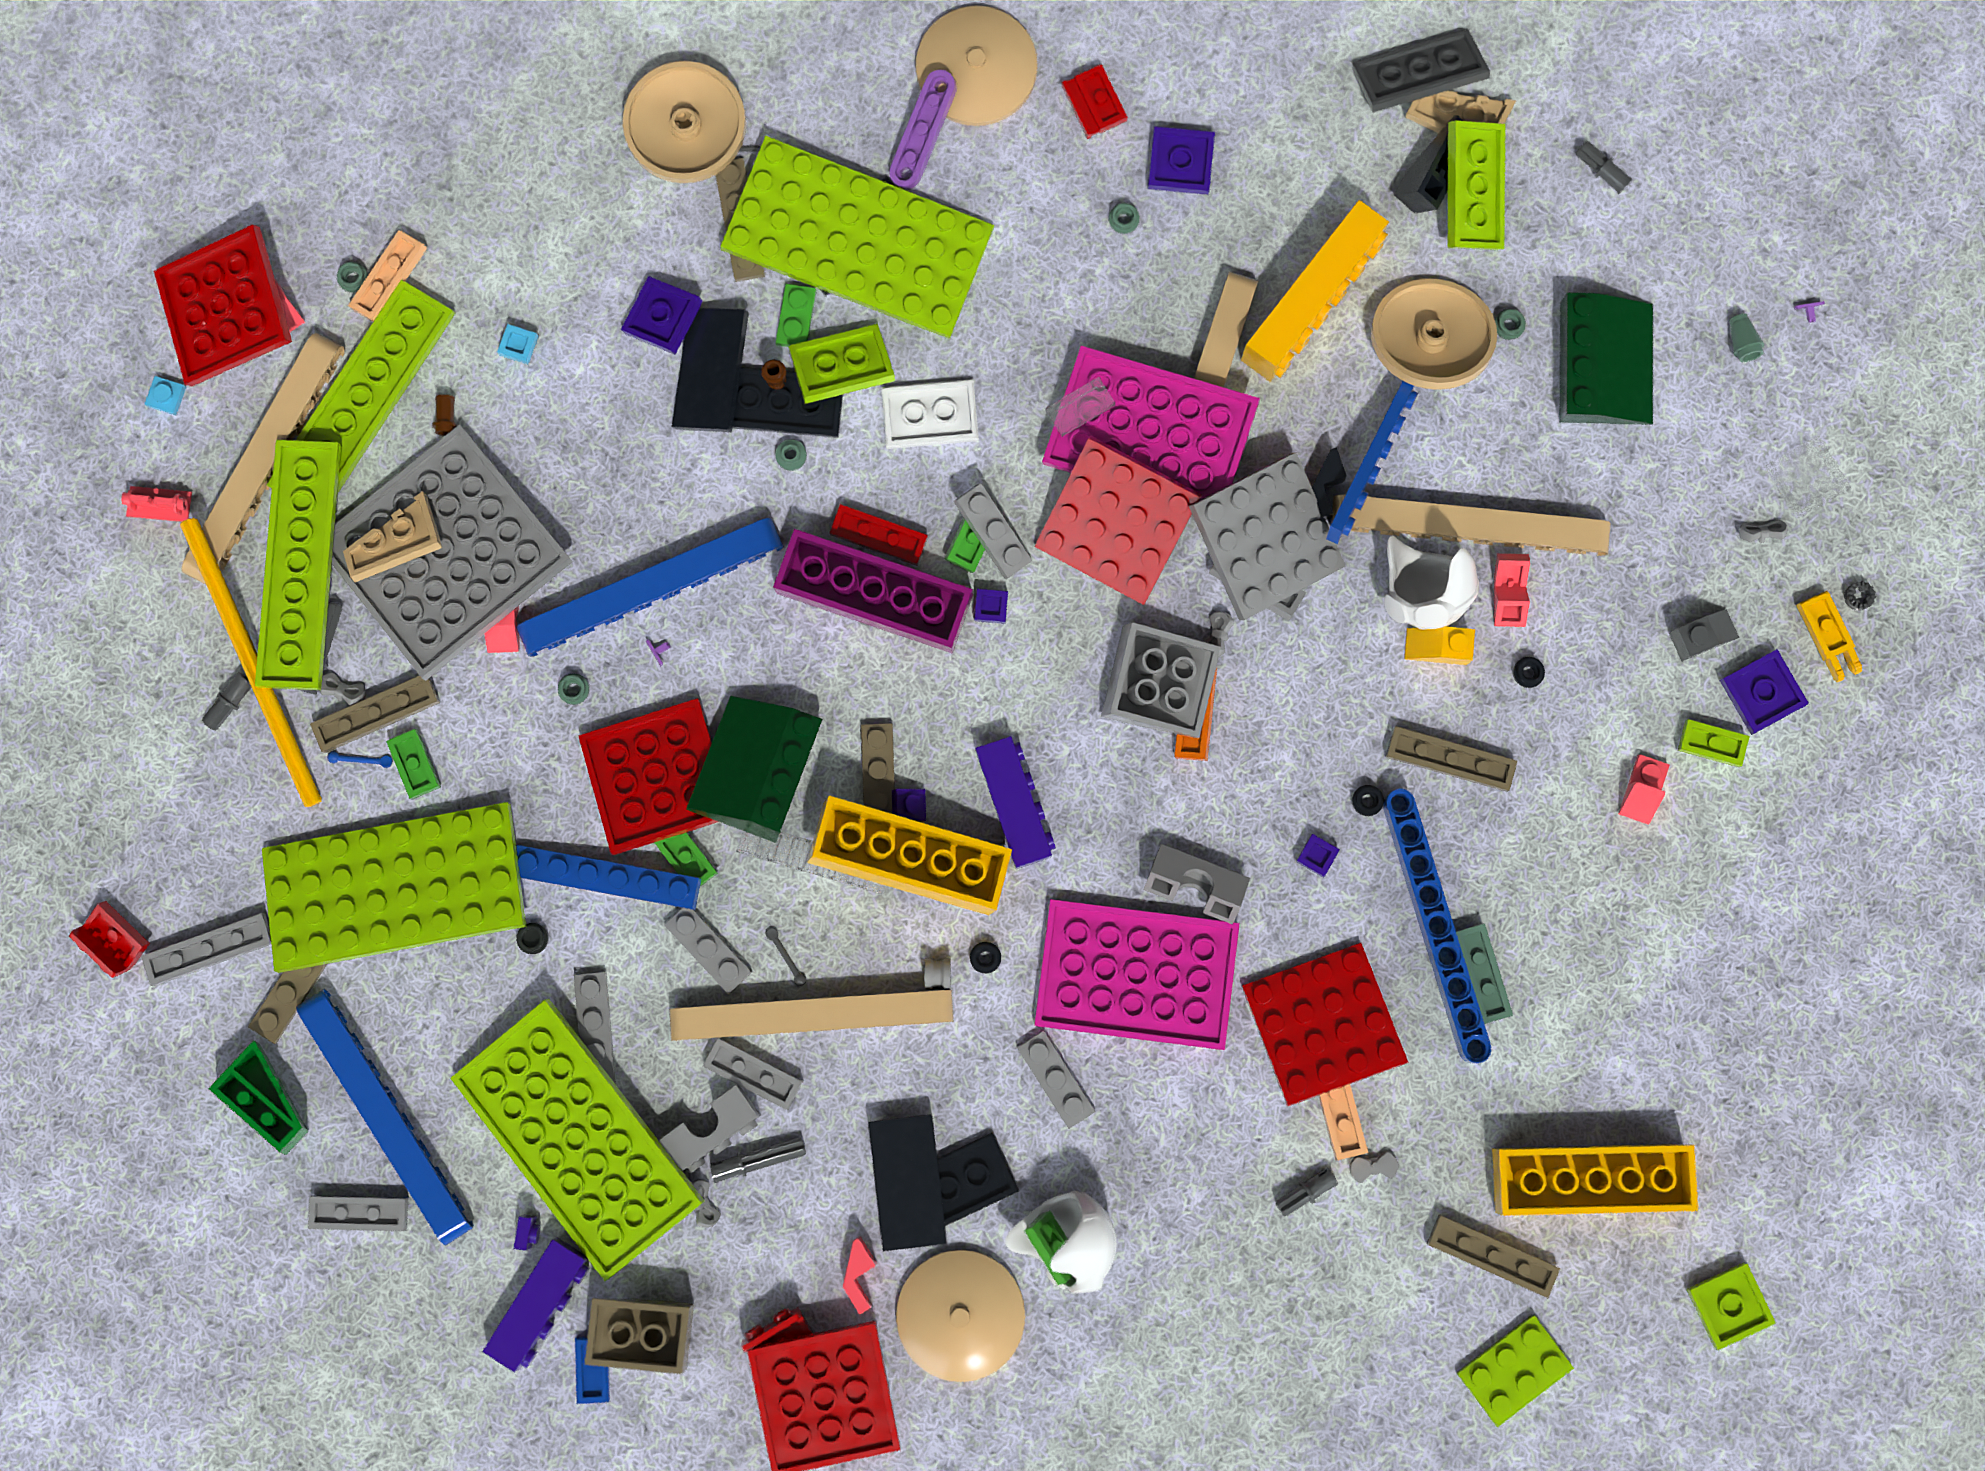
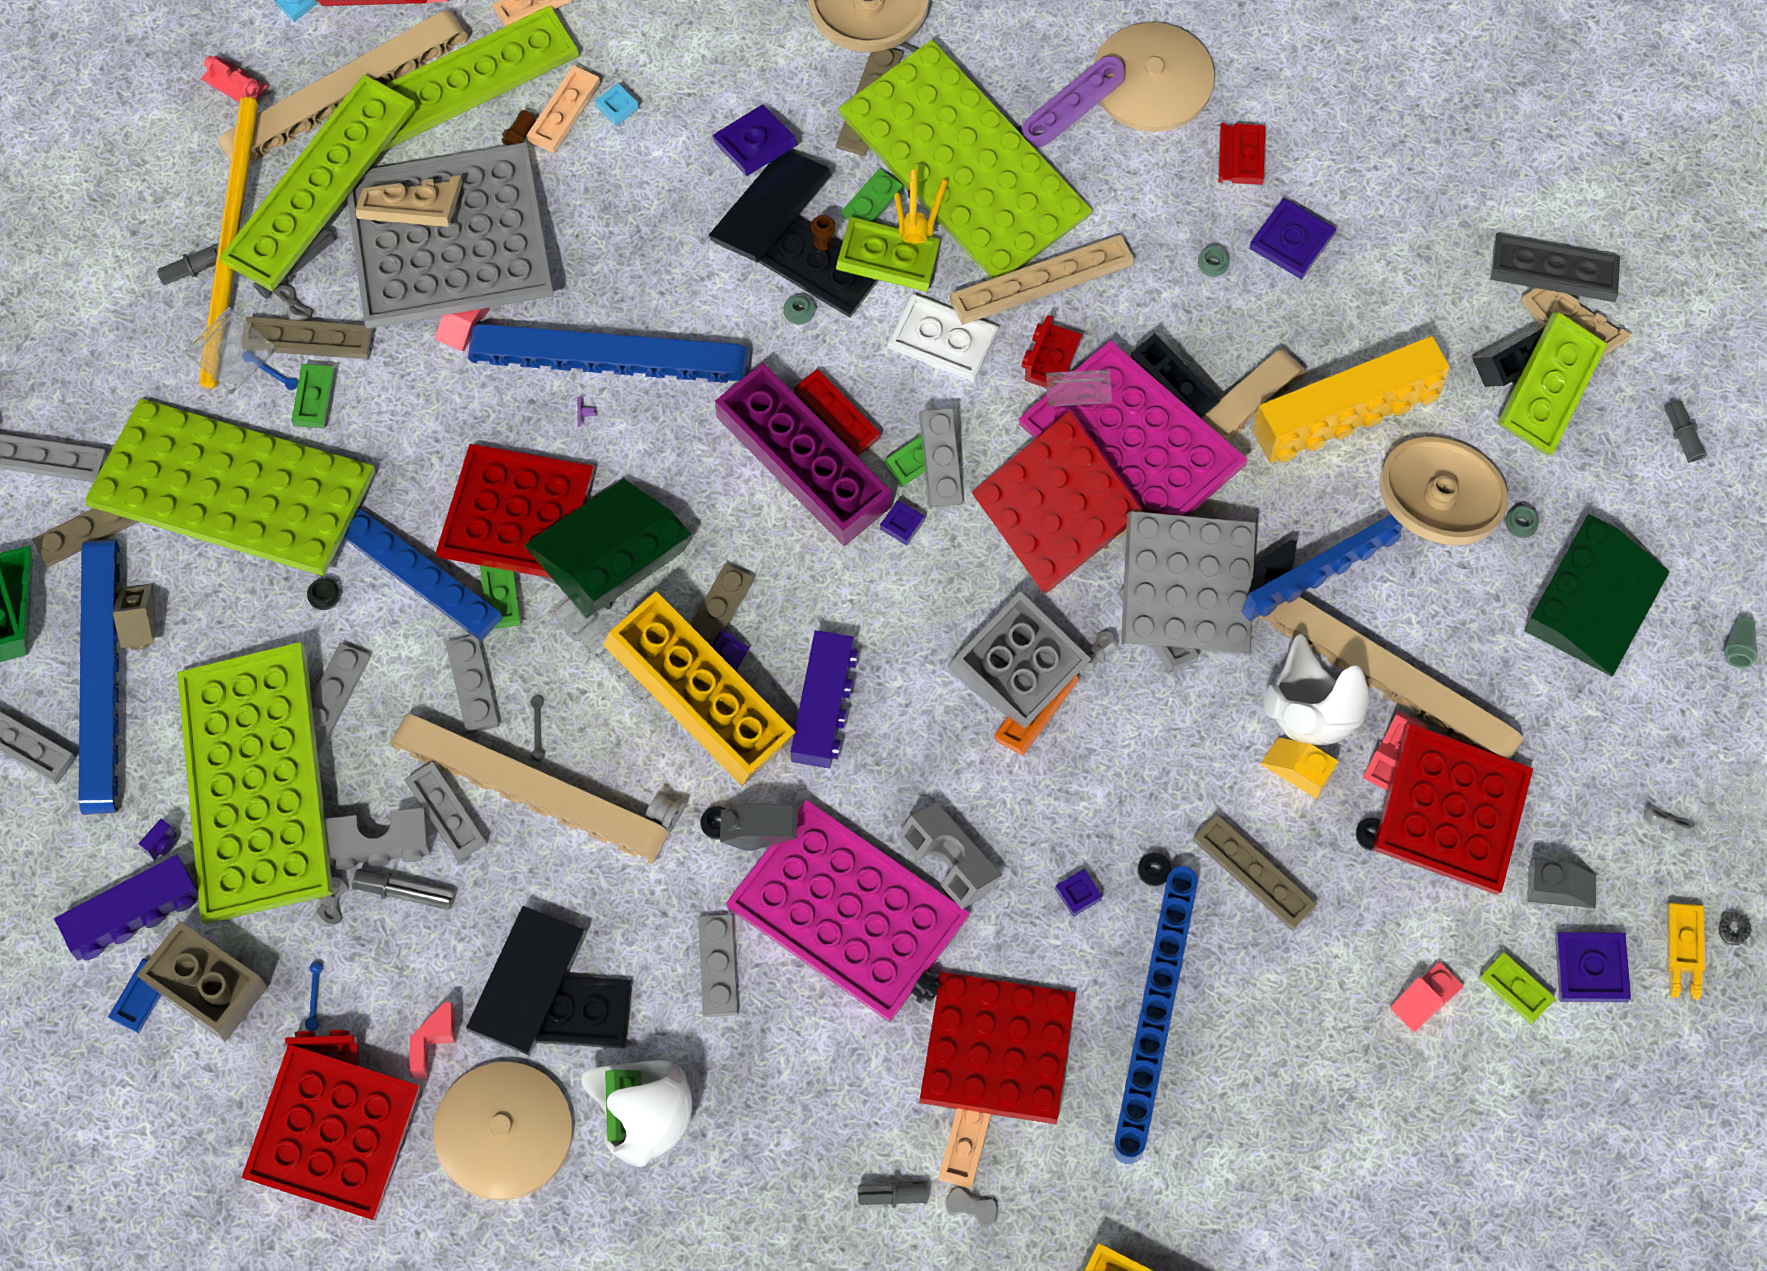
camera: 25 degrees right, 15 degrees down
(316, 764) = (230, 350): none -> clear tile
(382, 1047) = (135, 616): none -> dark tan slope
(472, 373) = (563, 109): none -> light nougat plate
(568, 680) = (489, 396): sand green plate -> none
(749, 1313) = (311, 1023): none -> blue hinge
(852, 327) = (915, 227): none -> yellow plant
(987, 316) = (1041, 279): none -> tan plate
(1026, 946) = (758, 825): none -> dark grey slope
(1034, 382) = (1052, 352): none -> red bracket
(1154, 350) = (1174, 375): none -> black slope
(1239, 1005) = (926, 987): none -> black plate
(1484, 973) = (1176, 1082): sand green plate -> none
(1587, 618) = (1453, 809): none -> red plate

